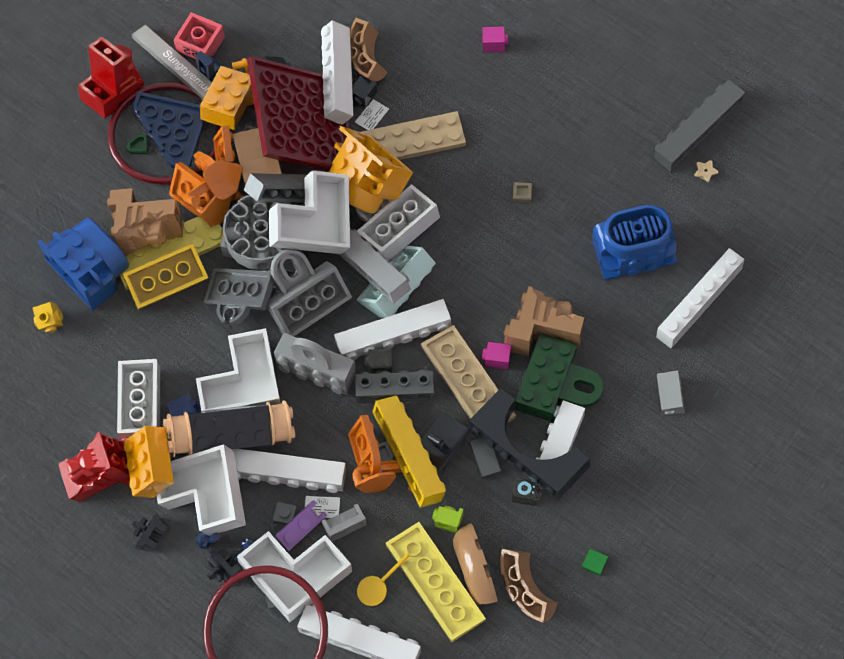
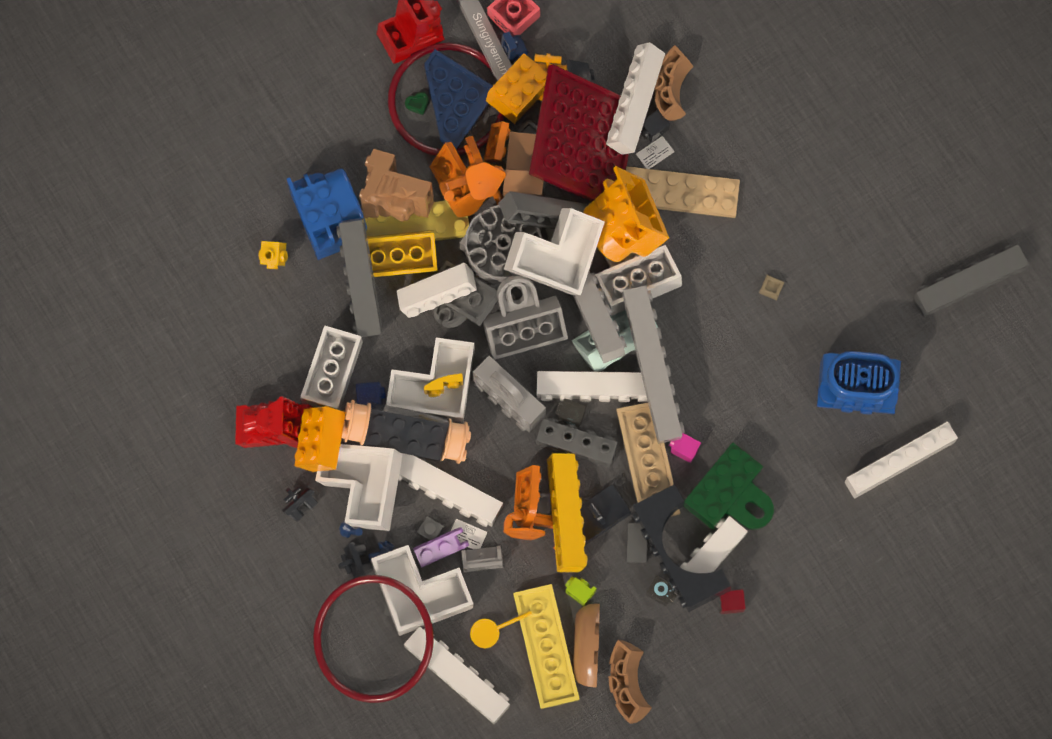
camera: 15 degrees right, 10 degrees up
(137, 305) = (360, 277): none -> dark grey brick
(213, 294) = (436, 290): none -> white brick
(244, 380) = (436, 387): none -> yellow slope
(439, 289) = (652, 364): none -> light grey brick
(494, 39) = (804, 116): dark pink brick -> none
(545, 317) = (741, 426): medium nougat brick -> none
(594, 562) = (700, 681): green tile -> none
(596, 478) = (732, 602): none -> dark red panel
(671, 393) = (835, 544): light grey hinge -> none
(705, 175) = (956, 334): tan plate -> none

